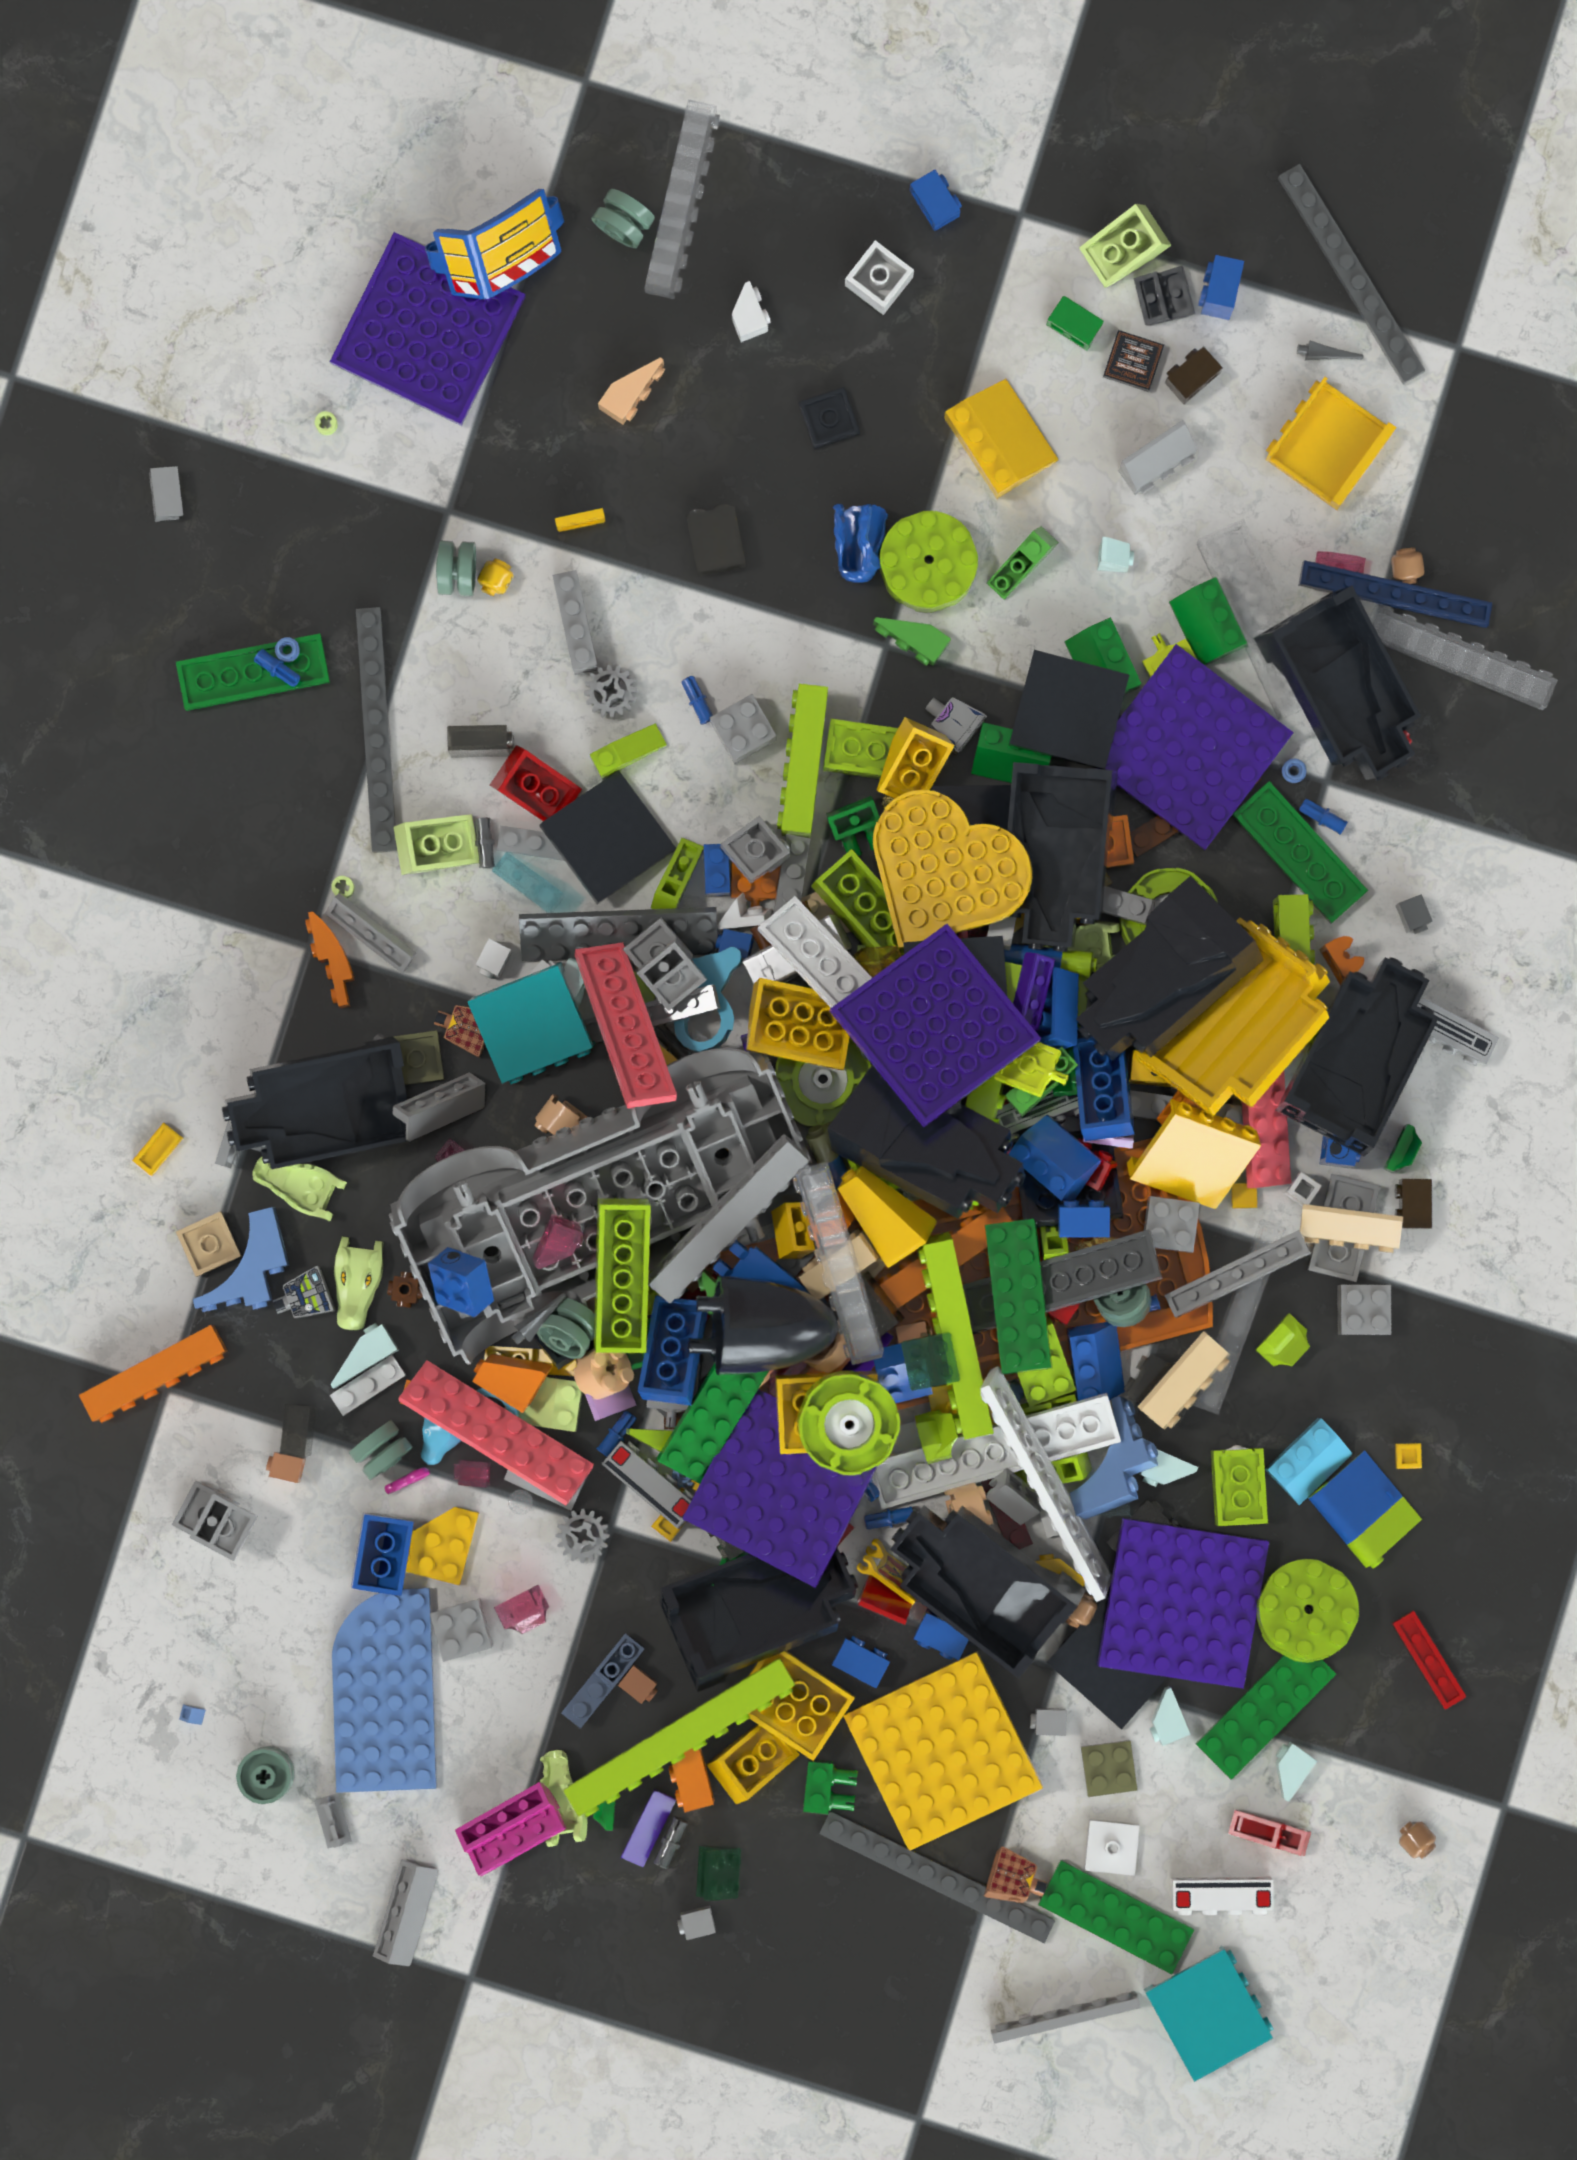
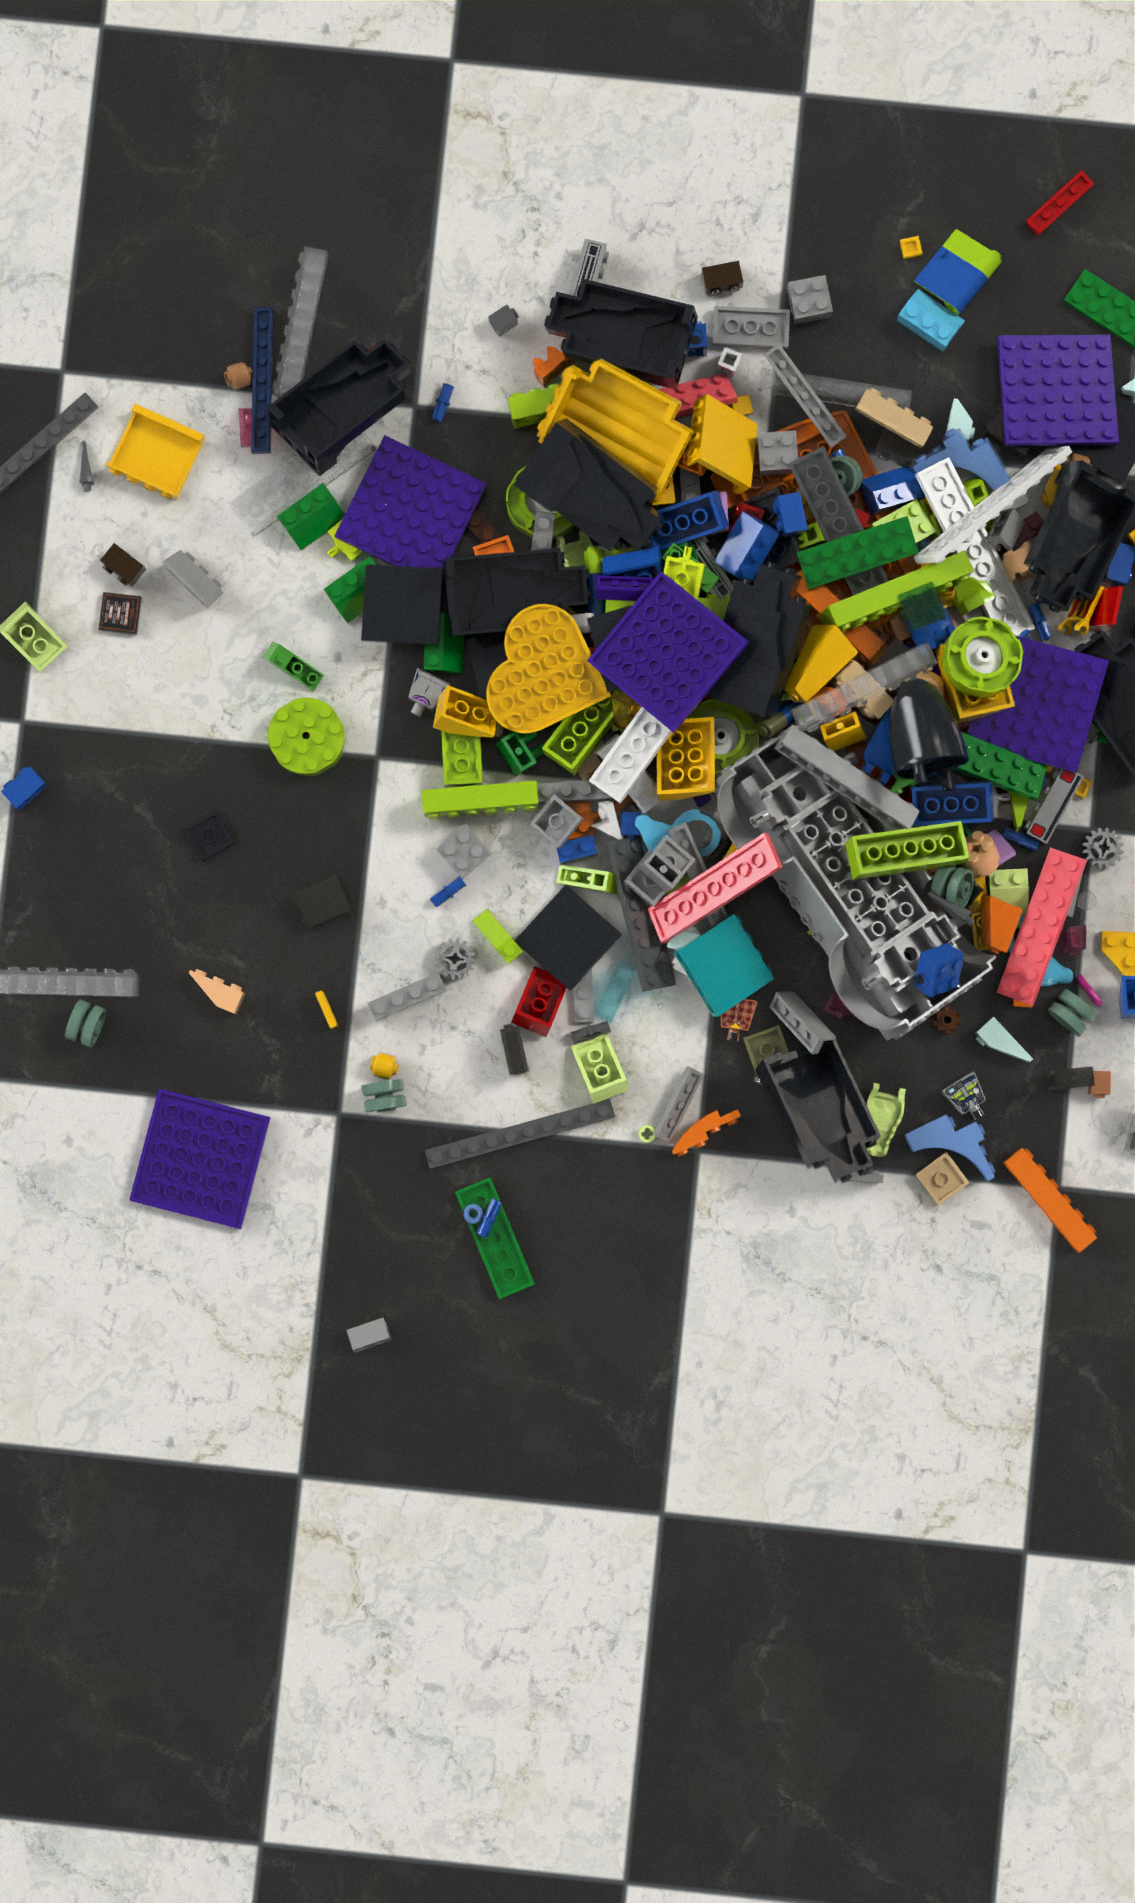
camera: 95 degrees left, 0 degrees up
(157, 1149) = (877, 1233): yellow tile -> none
(333, 422) = (290, 1228): yellowish green bush -> none
(356, 1278) = (944, 1059): yellowish green animal -> none
(367, 1385) = (1024, 1035): white plate -> none
(493, 959) = (679, 1006): white brick -> none
(499, 250) = (132, 1112): panel -> none
(557, 1115) = (791, 928): light nougat brick -> none
(557, 1241) = (892, 903): clear pink slope -> none
(747, 314) = (141, 913): white slope -> none
(859, 540) = (301, 791): blue hair -> none
(879, 277) = (93, 817): white brick -> none
(920, 638) = (367, 732): bright green slope -> none
(1000, 437) = (200, 701): yellow slope -> none
(1074, 323) = (100, 662): green panel -> none
(1114, 555) = (274, 597): light aqua slope -> none
(1164, 296) = (65, 599): black slope -> none
(1222, 287) = (51, 555): blue brick -> none
(1239, 1486) = (961, 365): lime piece -> none
(1284, 1343) = (846, 354): lime slope -> none
(1297, 764) = (412, 425): medium blue plate -> none
(1299, 852) = (473, 414): green plate -> none
(1331, 1607) = (1041, 279): lime piece -> none
(1351, 1226) = (751, 318): tan slope -> none
(1404, 1150) = (683, 292): green slope -> none

